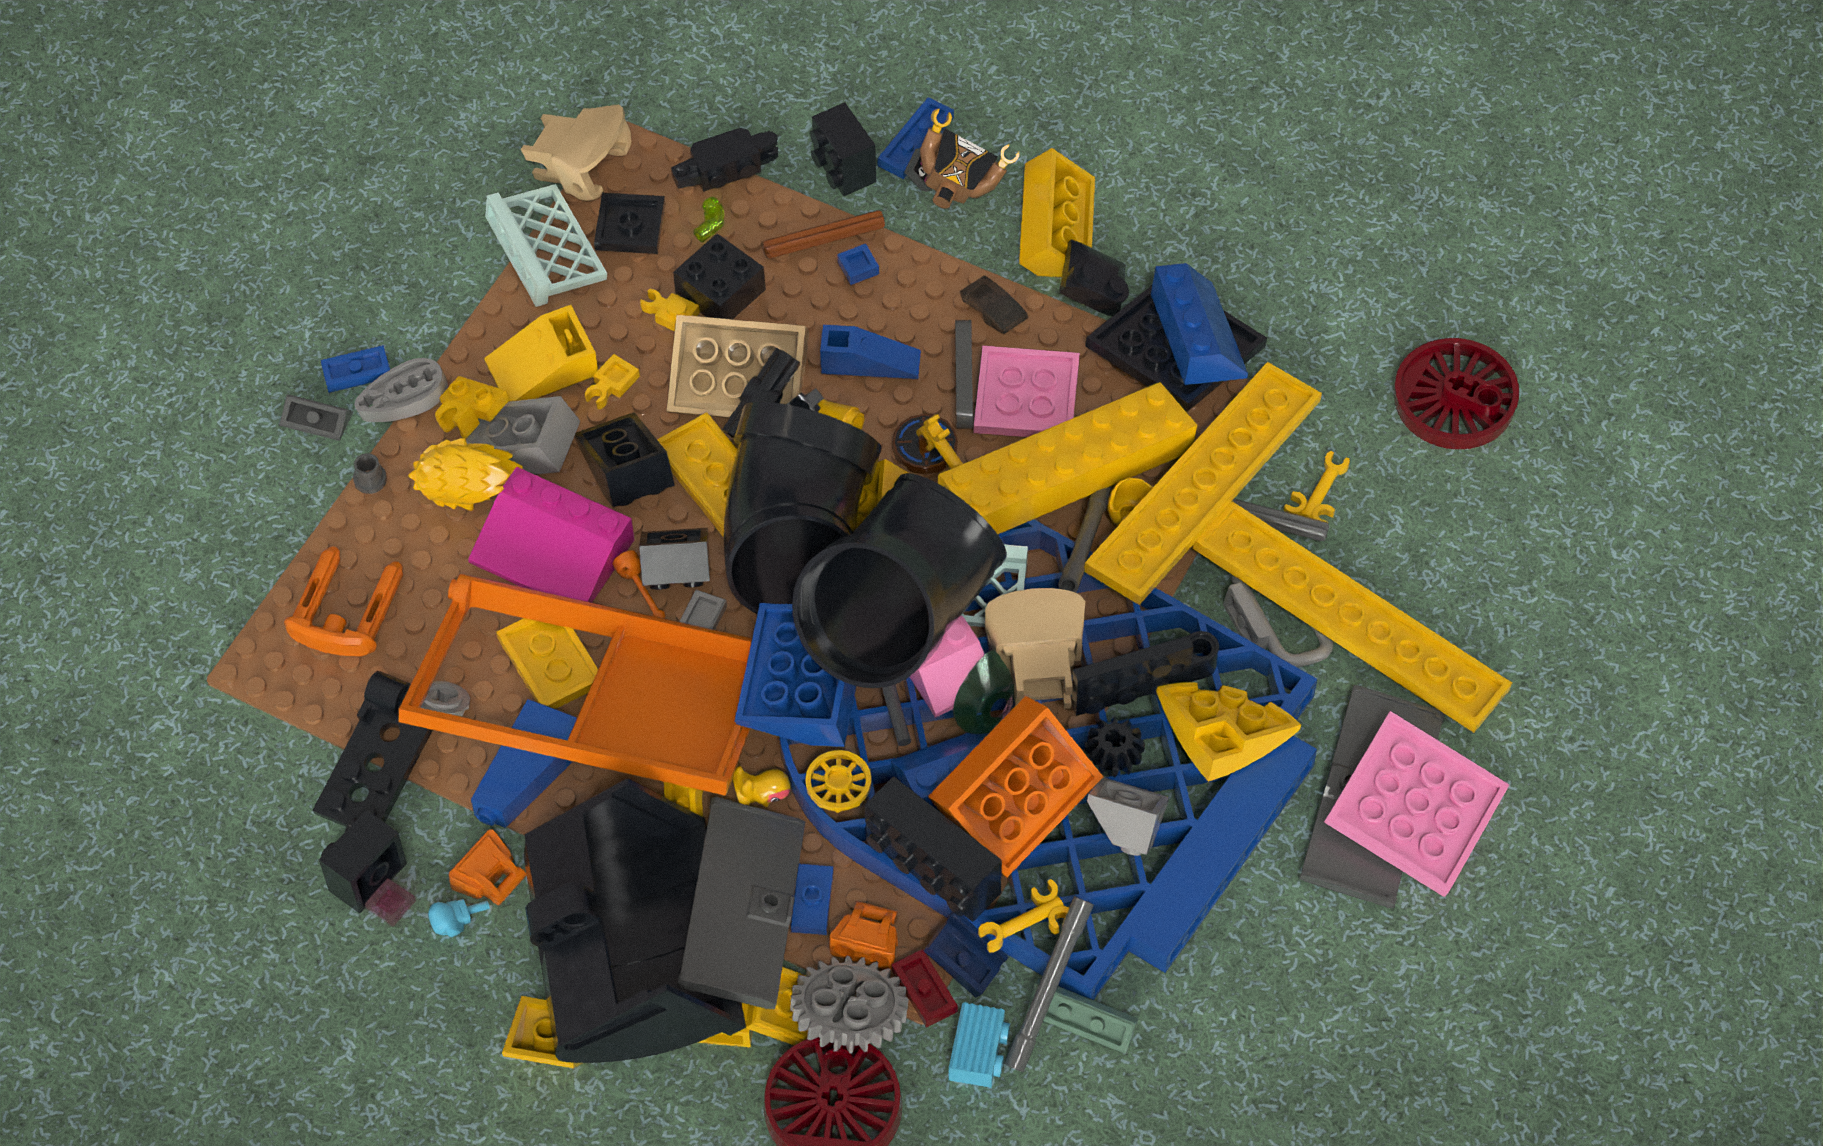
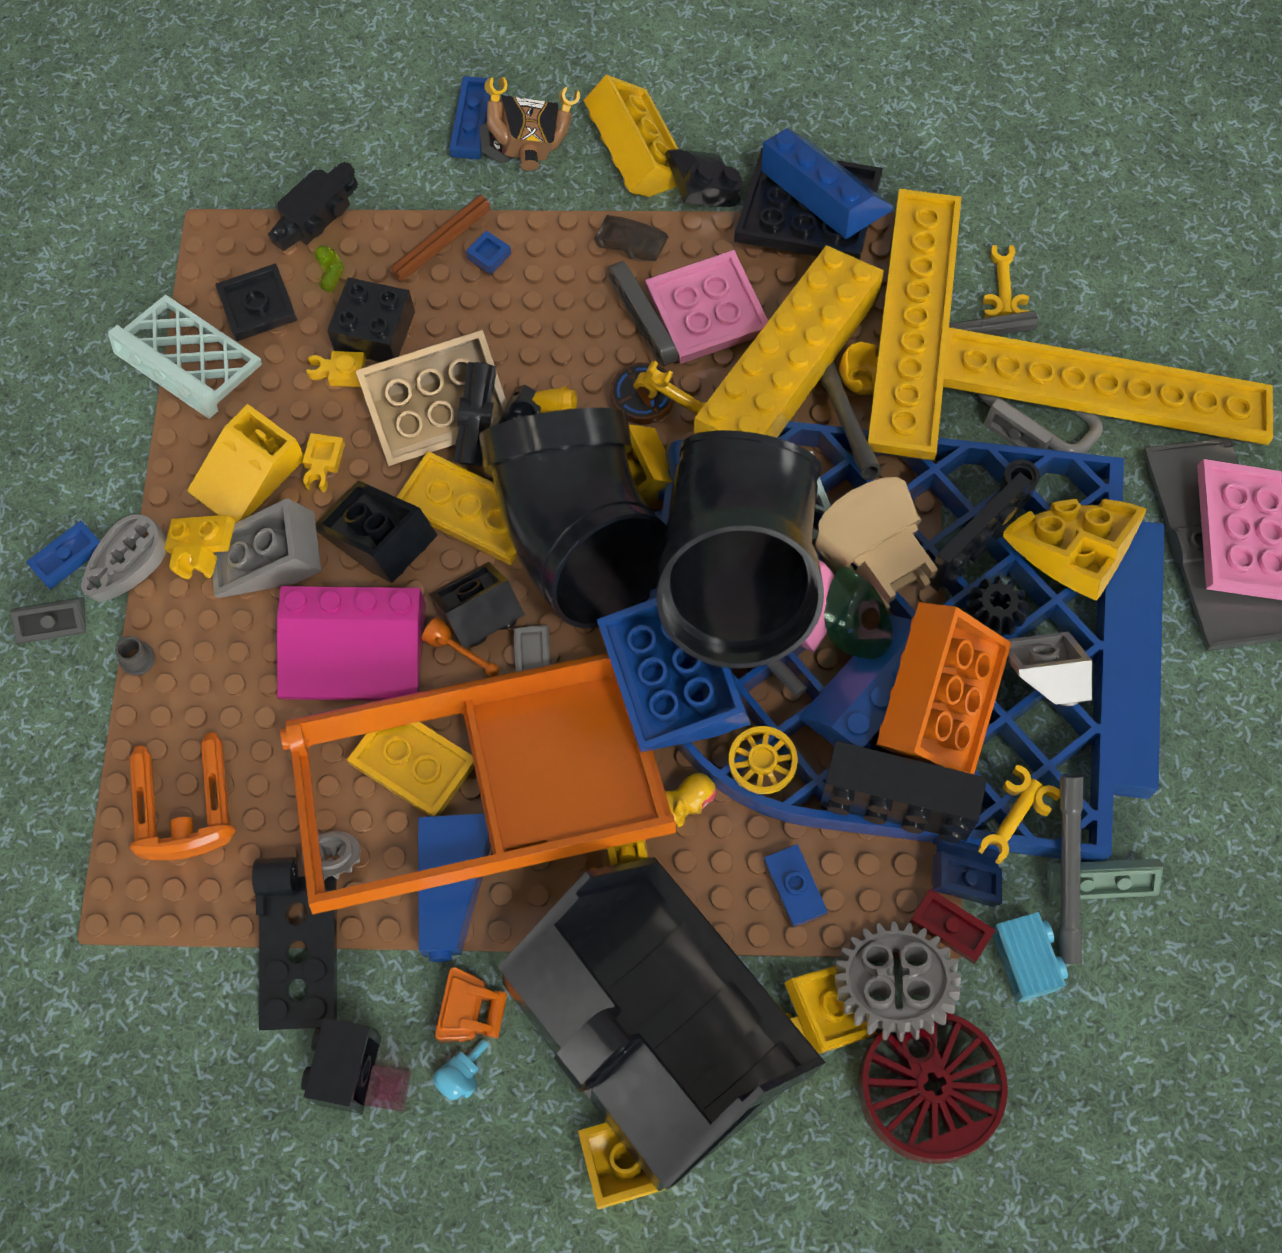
camera: 25 degrees left, 10 degrees up
(462, 473) = (230, 615): yellow head -> none
(577, 145) = (171, 251): tan piece -> none
(742, 904) = (745, 934): dark grey door -> none
(843, 149) = (417, 152): black brick -> none
(864, 353) = (544, 332): blue slope -> none
(865, 937) = (870, 903): orange piece -> none
(1455, 393) = (1074, 149): dark red piece -> none

